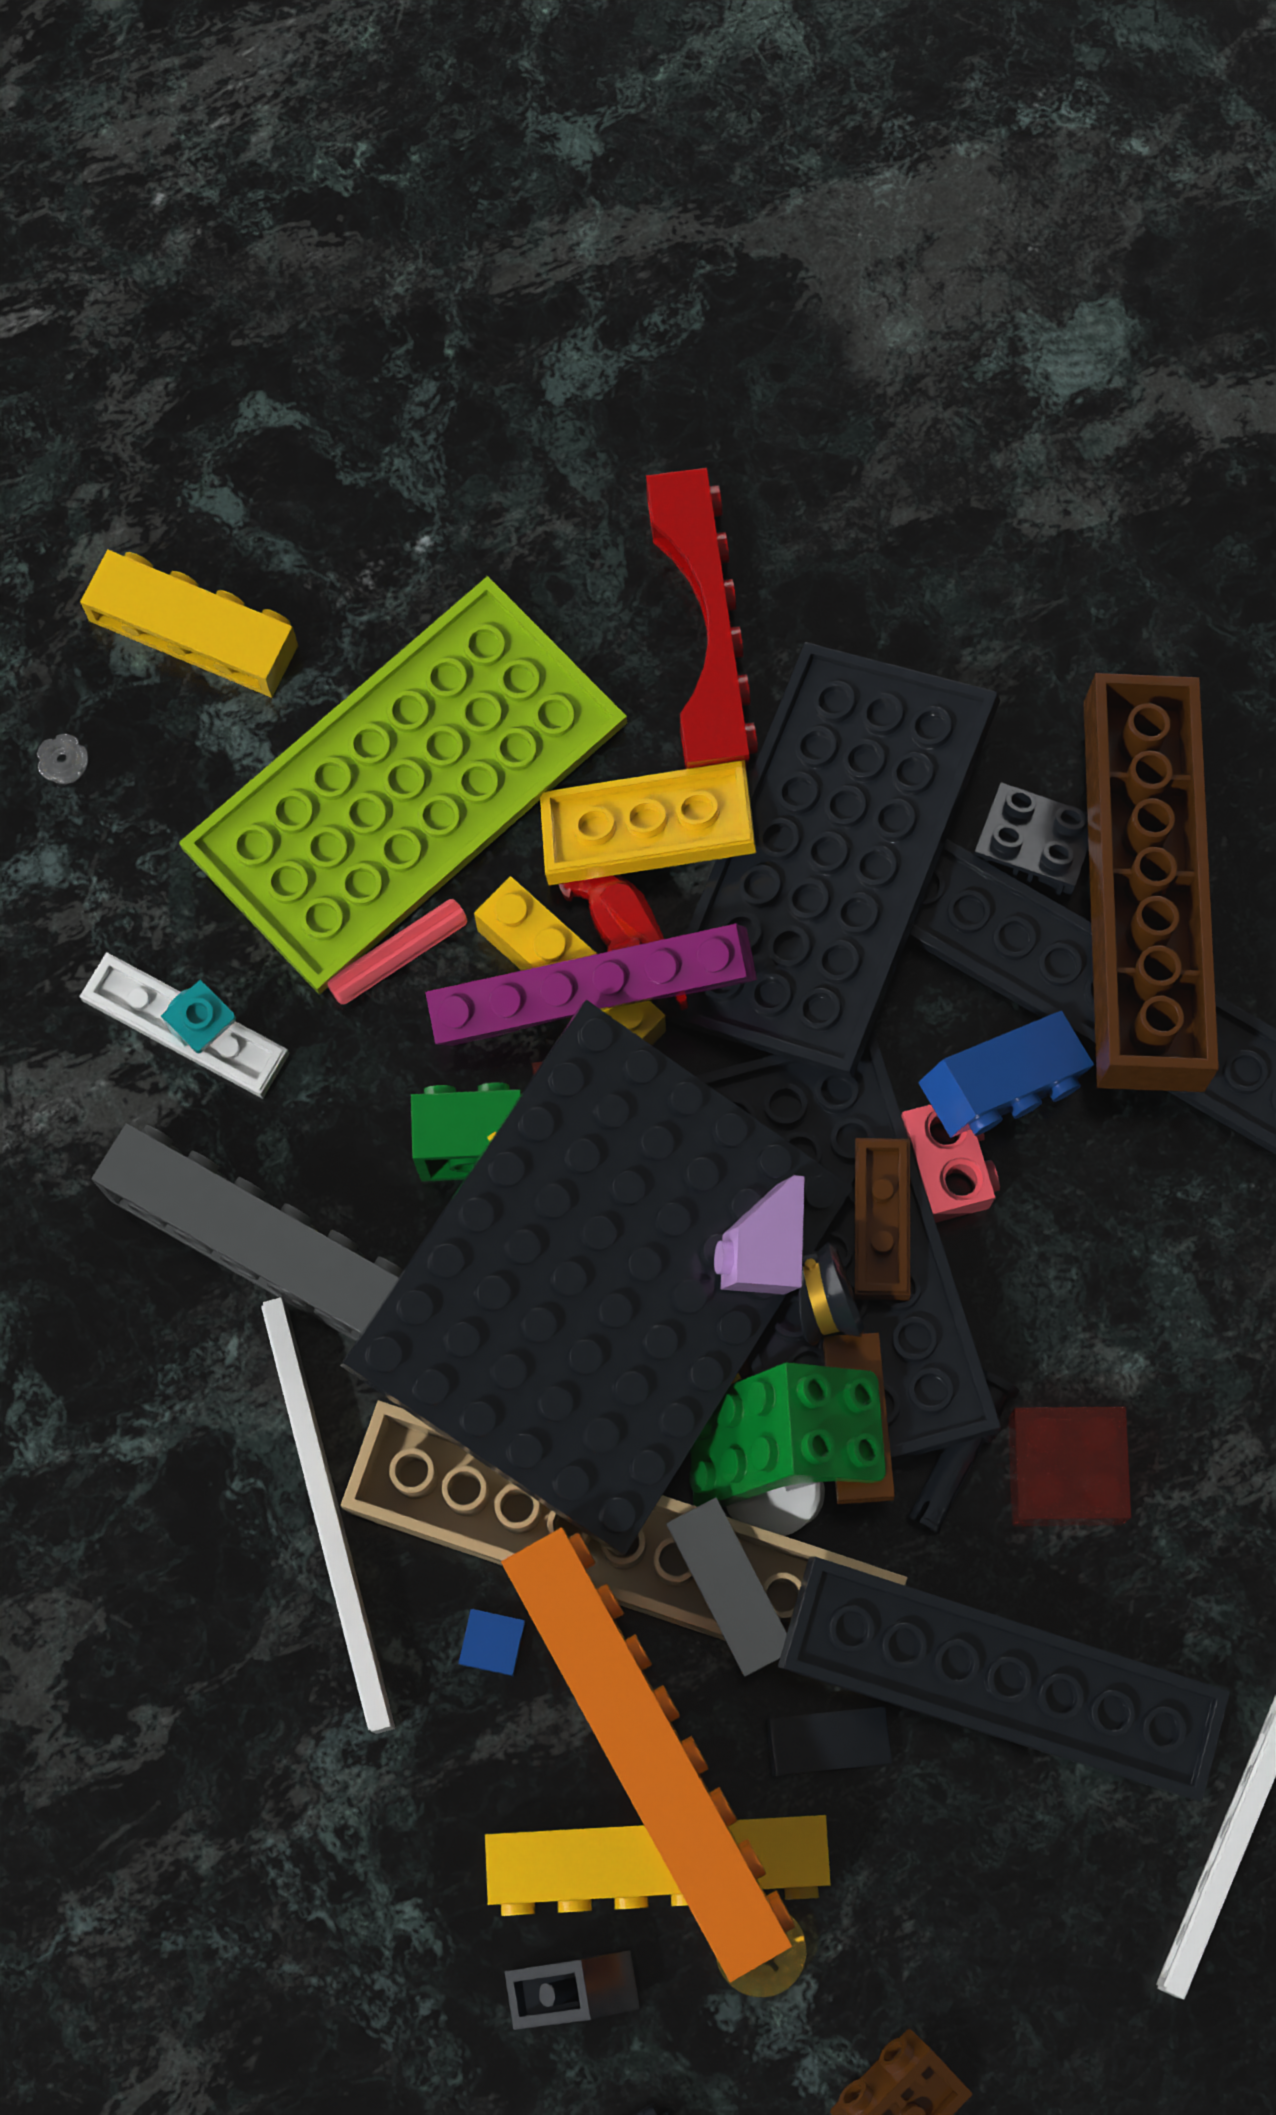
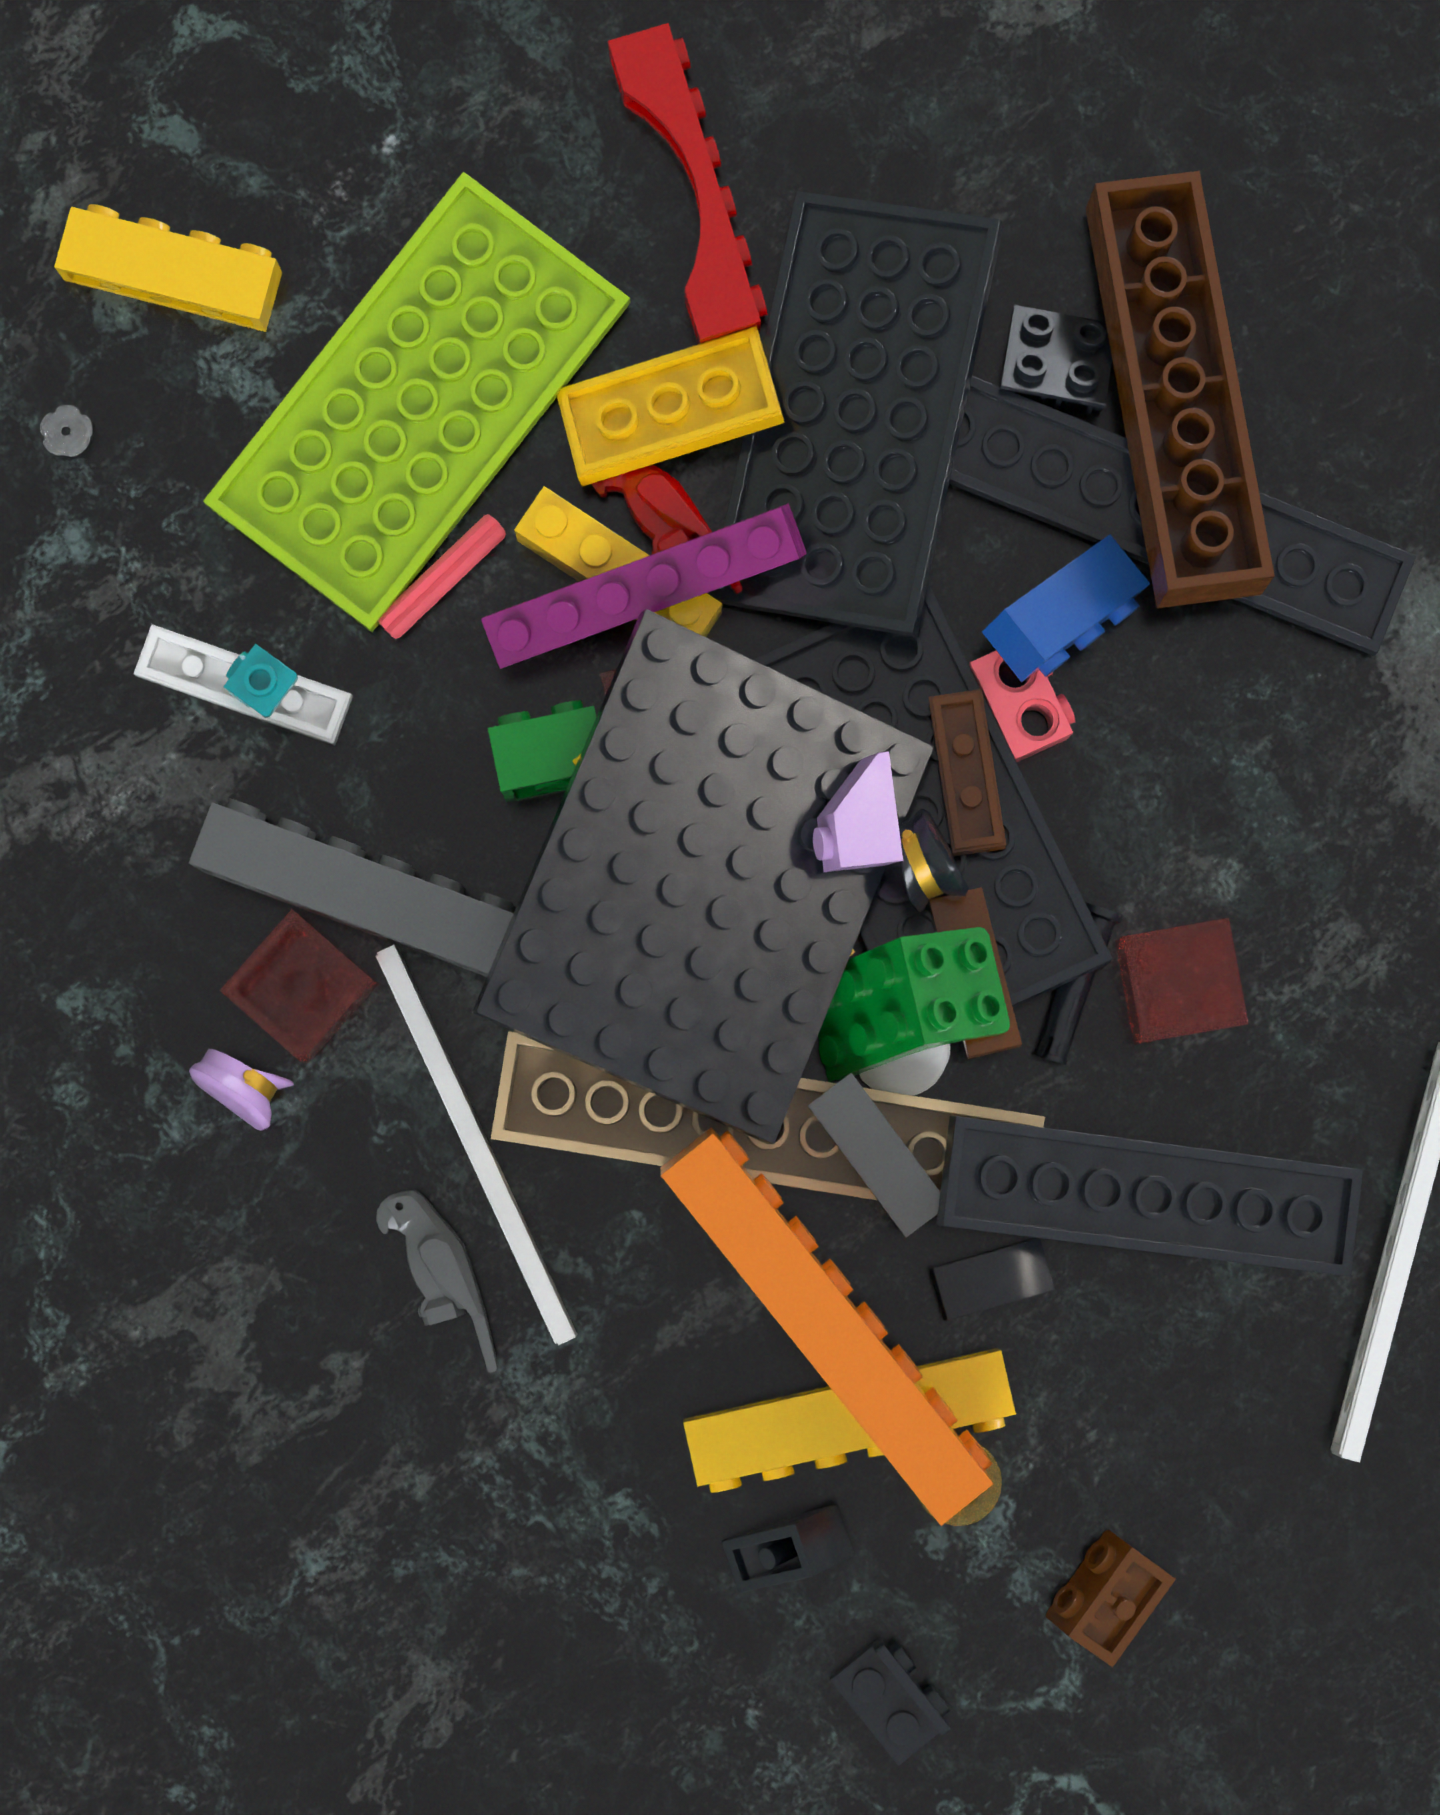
camera: 15 degrees left, 10 degrees up
(100, 1414) = (238, 1086): none -> lavender piece
(179, 1325) = (299, 987): none -> clear red brick
(265, 1631) = (437, 1265): none -> dark grey animal
(492, 1642) = (656, 1239): blue tile -> none

